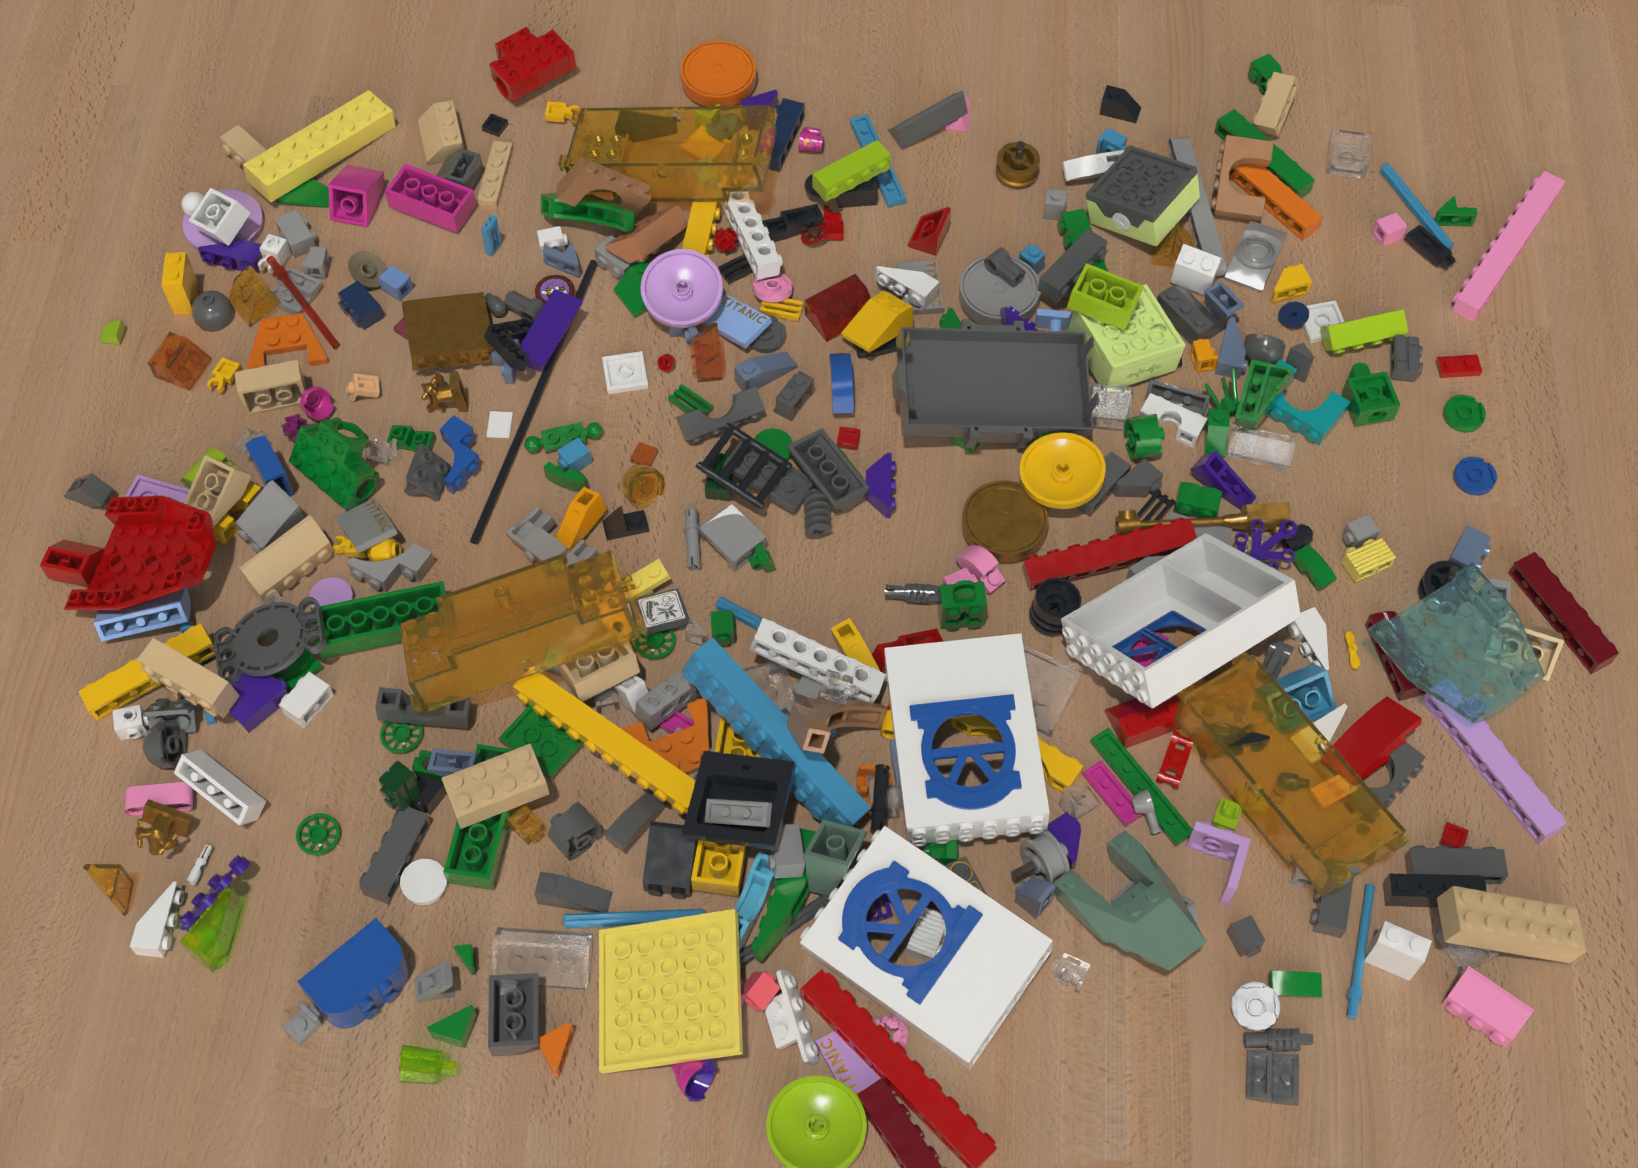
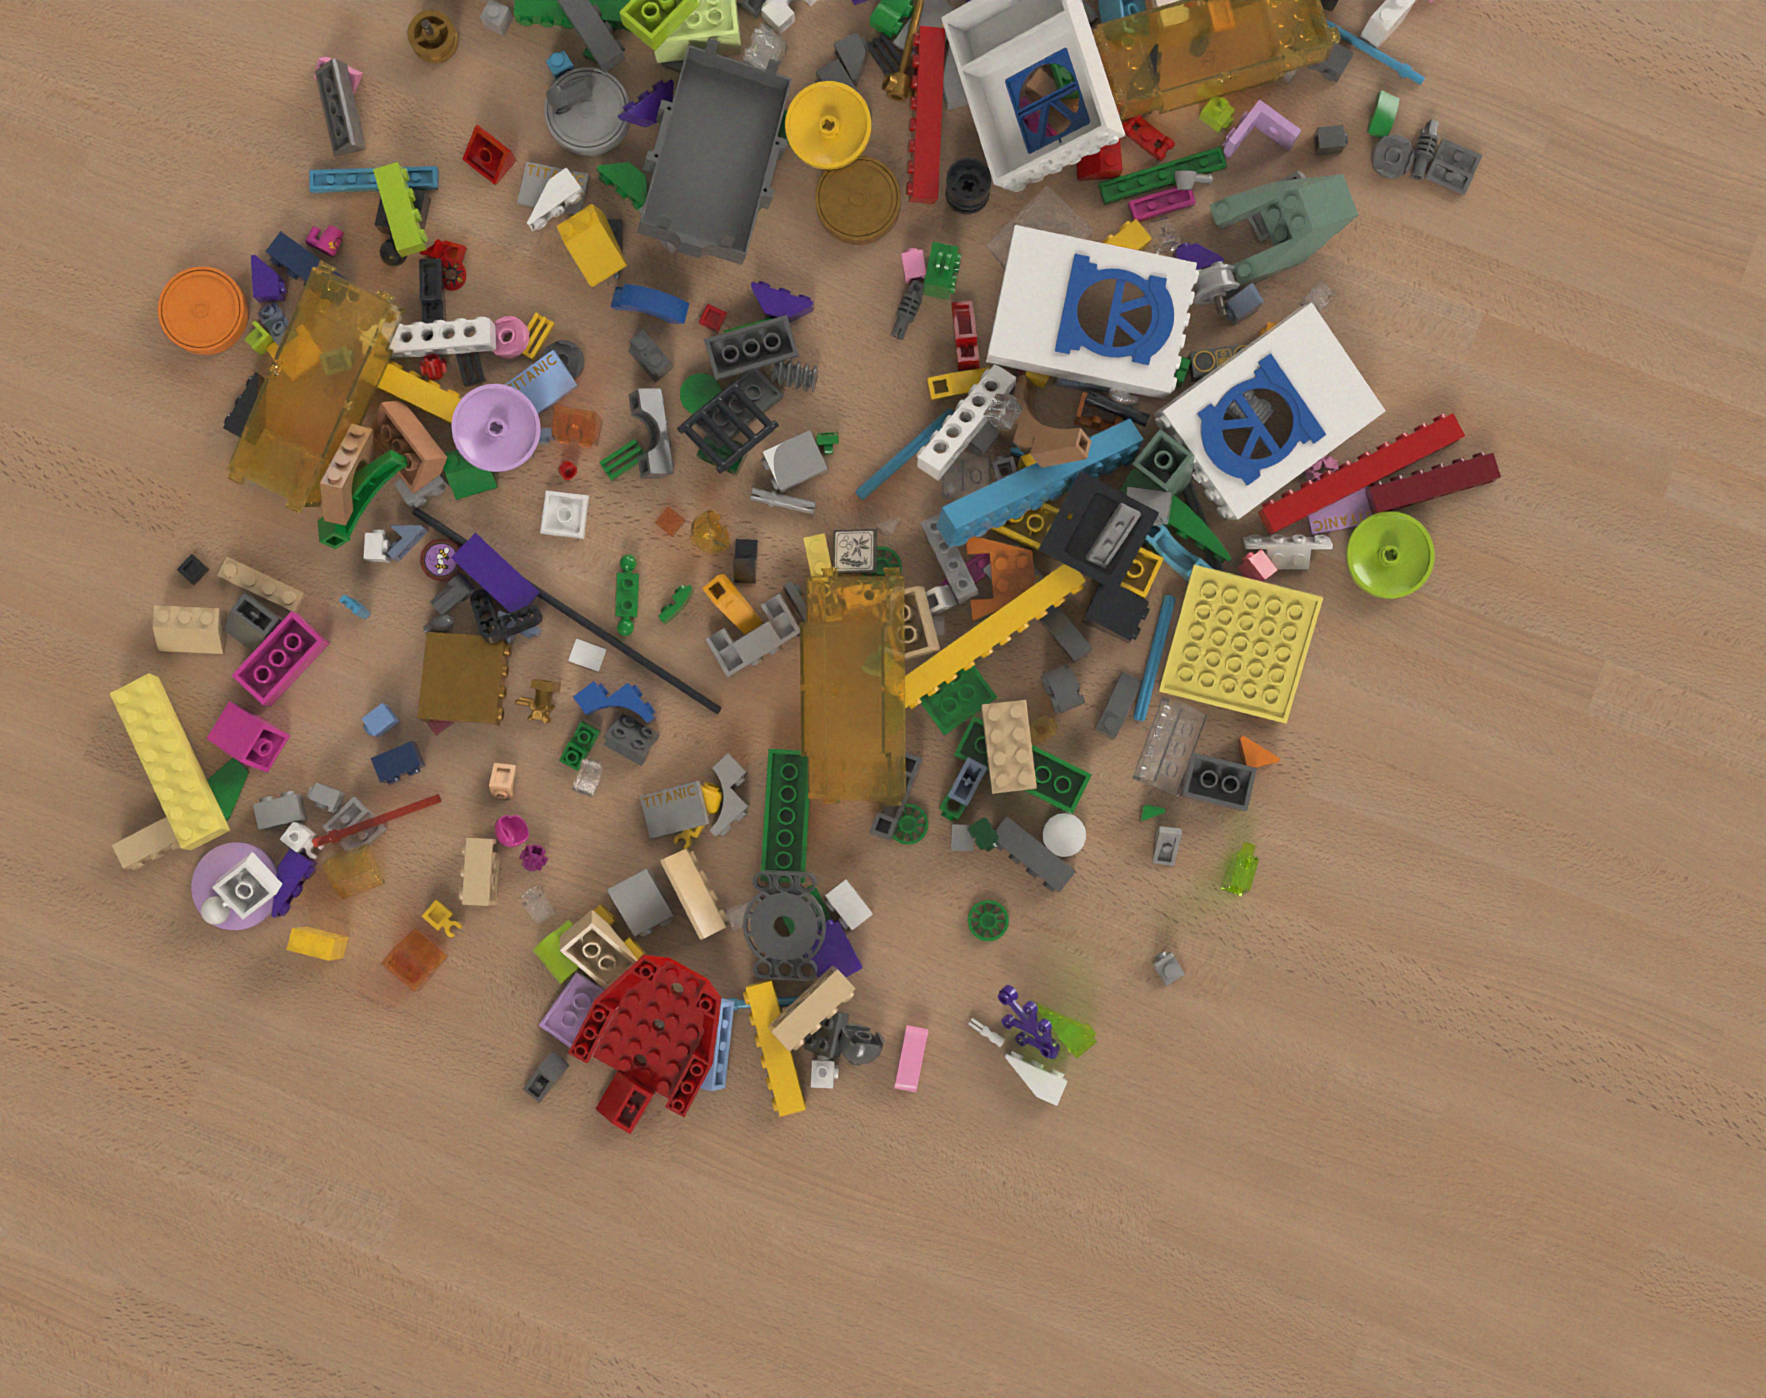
camera: 65 degrees left, 25 degrees up
(113, 332) = (349, 1025): lime slope -> none
(113, 882) = (992, 1113): clear yellow slope -> none
(163, 820) = (941, 1056): pearl gold piece -> none
(212, 311) = (355, 917): dark grey cylinder -> none
(220, 787) = (919, 1000): white brick -> none
(267, 463) = (579, 892): blue brick -> none
(285, 335) = (408, 849): orange wing -> none
(331, 591) = (740, 860): lavender tile -> none
(335, 460) = (596, 828): green piece -> none
(357, 977) = (1146, 910): blue brick -> none
(366, 269) = (354, 738): dark tan dish -> none
(431, 794) = (981, 809): black brick -> none
(454, 1028) = (1212, 837): green slope -> none
(529, 62) = (126, 509): red piece -> none
(559, 111) = (199, 497): yellow plate -> none
(574, 455) = (654, 590): dark azure brick -> none
(694, 1078) = (1319, 646): hat -> none
(722, 627) = (891, 500): green brick -> none
(763, 370) = (608, 375): sand blue slope -> none
(836, 306) = (557, 278): clear red slope -> none
(982, 565) = (899, 239): bright pink brick -> none
(1052, 319) = (642, 69): light blue tile -> none
(1143, 436) = (808, 34): green brick -> none

